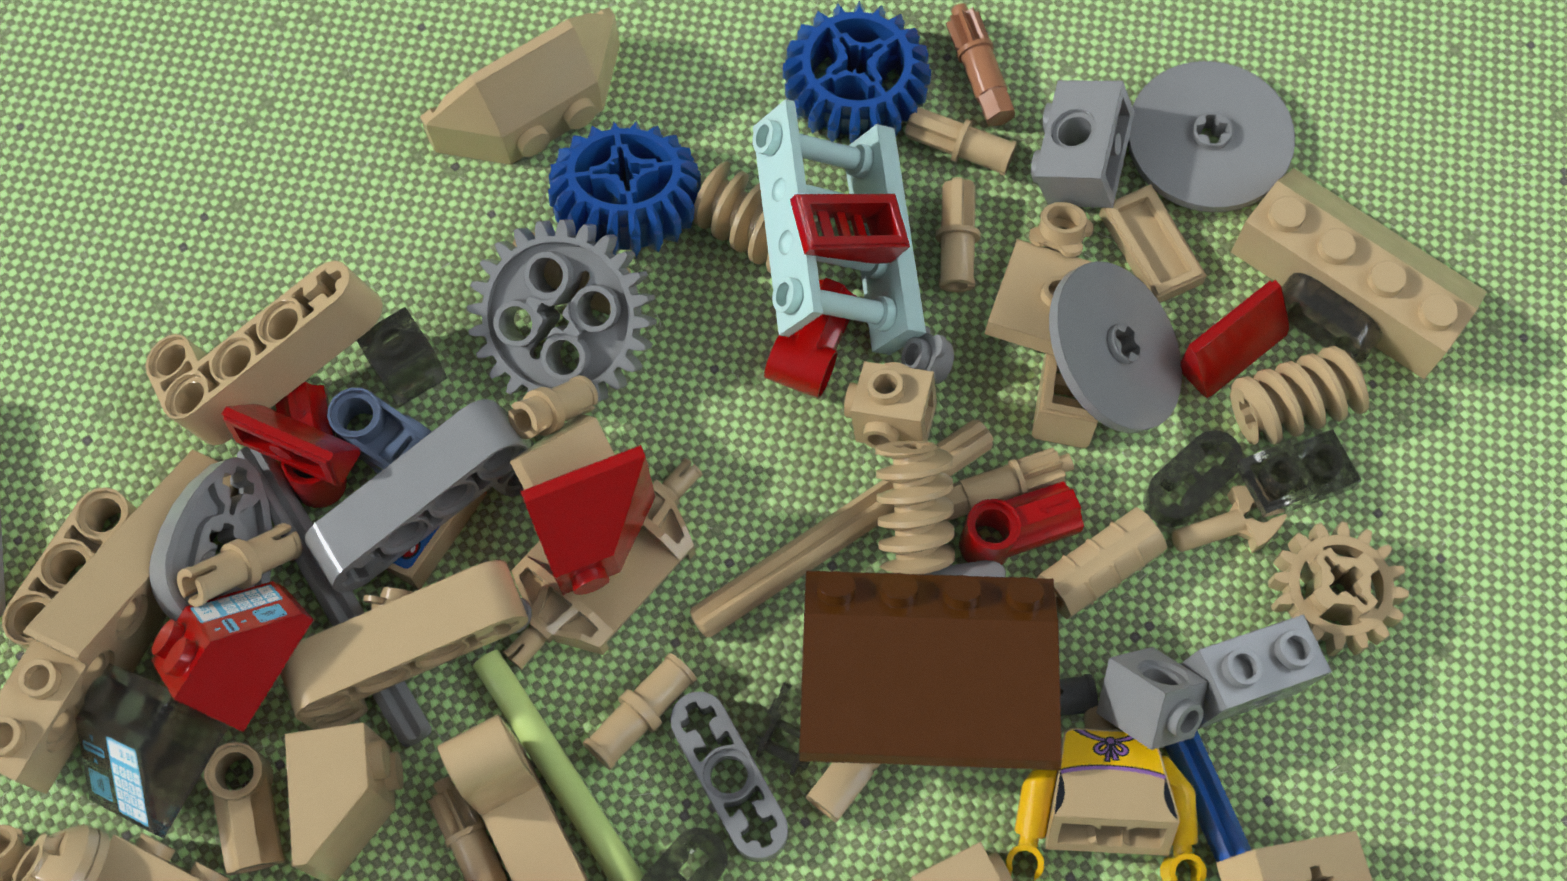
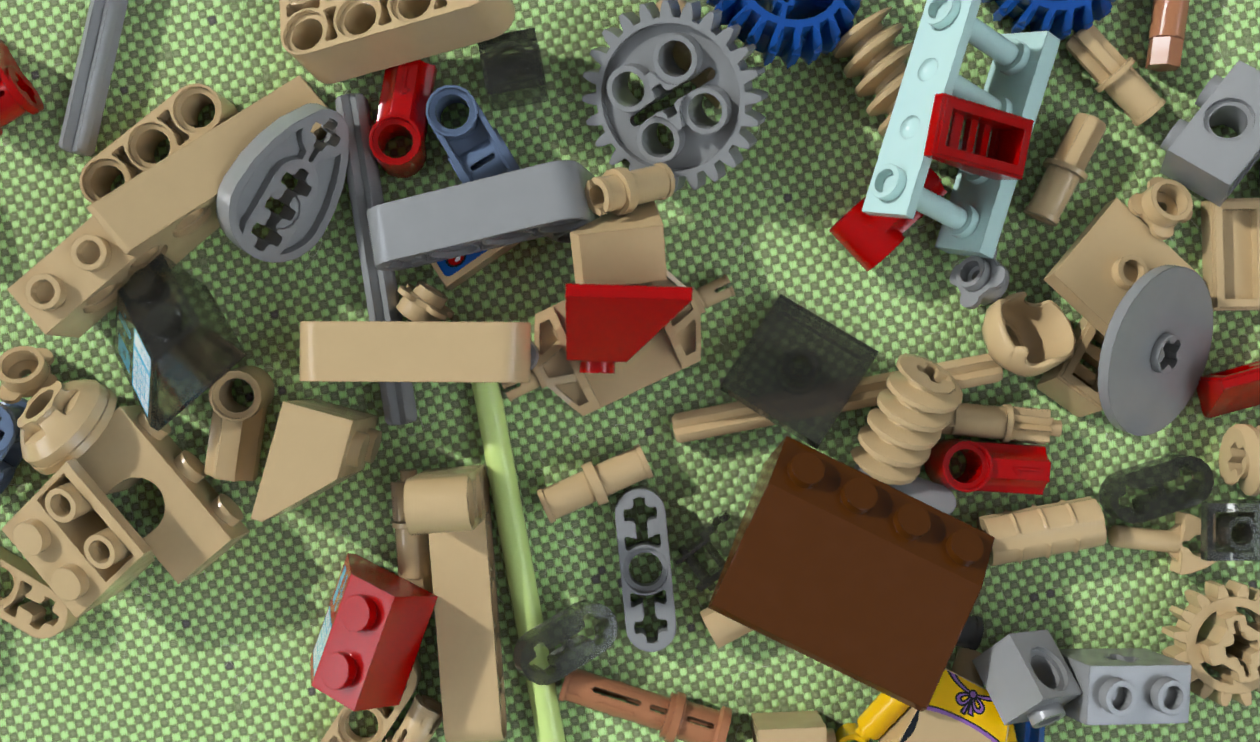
camera: 20 degrees right, 20 degrees up
(230, 651) = (263, 300): red slope -> none
(239, 564) = (299, 215): tan pin -> none
(291, 442) = (386, 117): red slope -> none
(793, 512) = (798, 371): none -> clear smoke plate
(891, 403) = (929, 313): tan brick -> none
(993, 391) = (1027, 335): none -> tan hair

